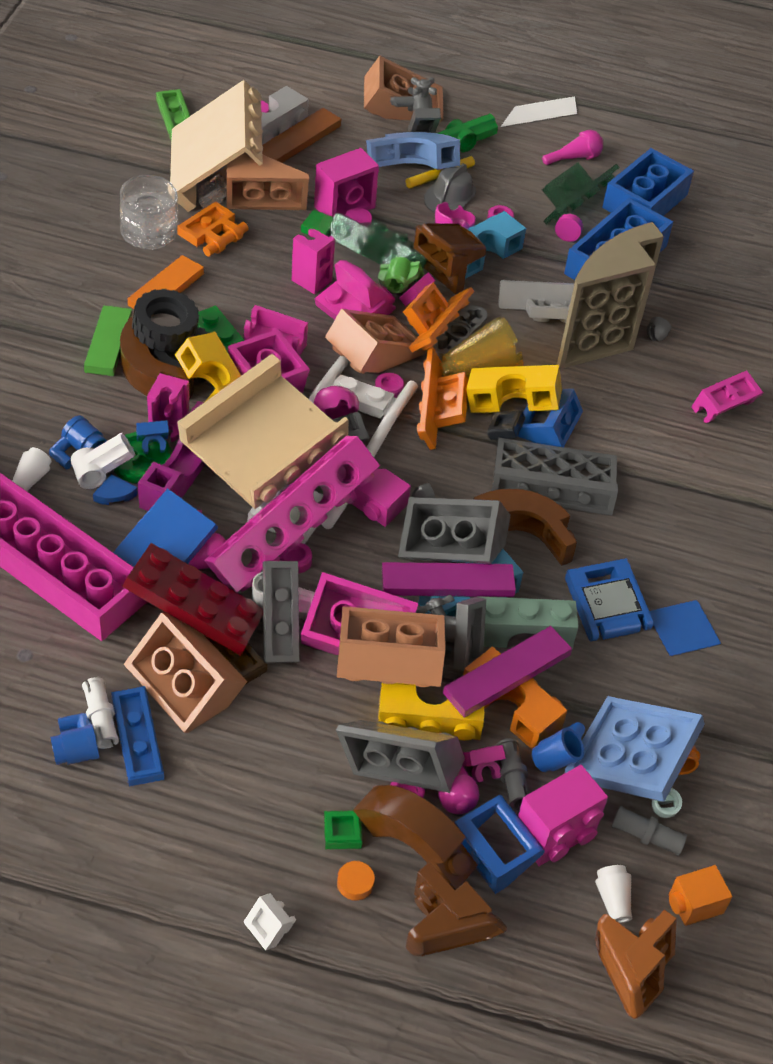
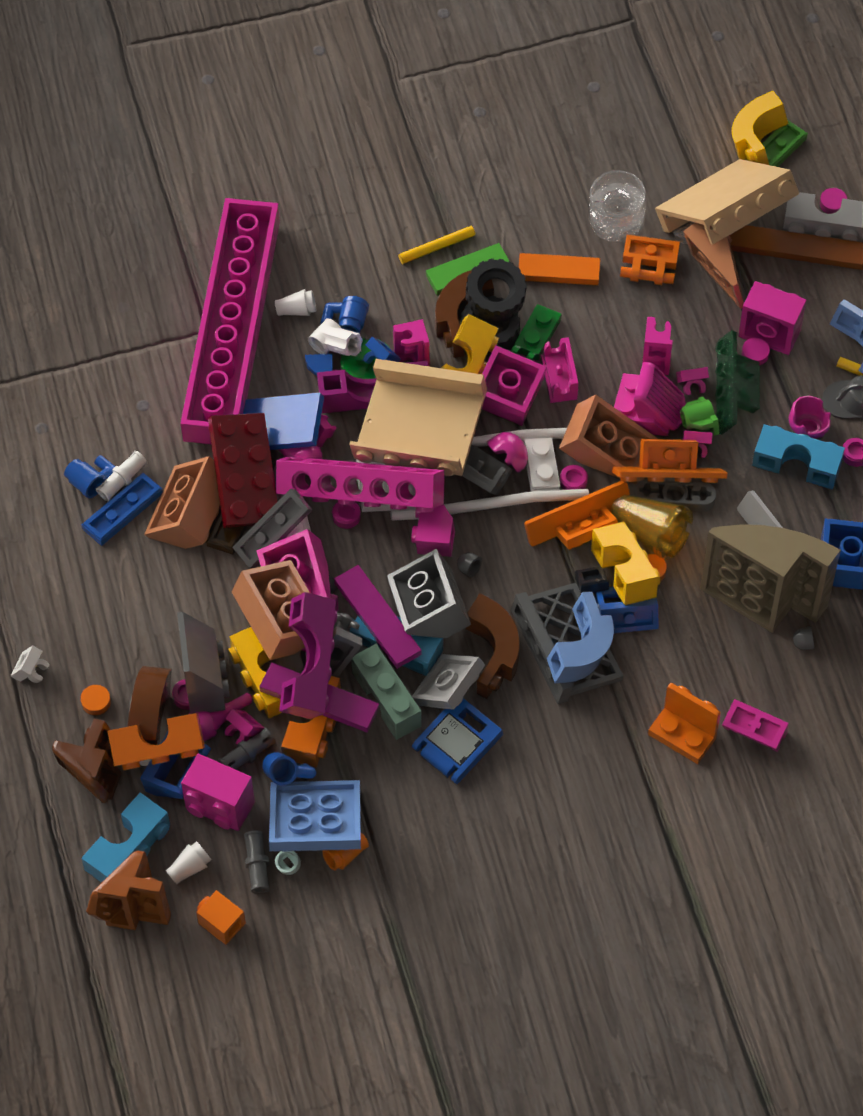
camera: 65 degrees right, 10 degrees up
(60, 347) = (436, 244): none -> yellow bar
(152, 114) = (754, 123): none -> yellow arch
(317, 221) = (721, 325): green tile -> none
(342, 830) = (127, 670): green tile -> none
(357, 258) = (693, 376): none -> dark pink tile
(448, 252) = (751, 432): reddish brown piece -> none
(450, 616) = (314, 622): none -> magenta arch
(490, 806) = (130, 747): none -> orange arch
(548, 909) = (147, 824): none -> dark azure arch
(552, 567) = (448, 681): none -> light grey plate
(581, 446) = (580, 658): none -> medium blue arch
(684, 628) = (476, 807): blue sticker -> none
(695, 437) = (686, 723): none -> orange bracket

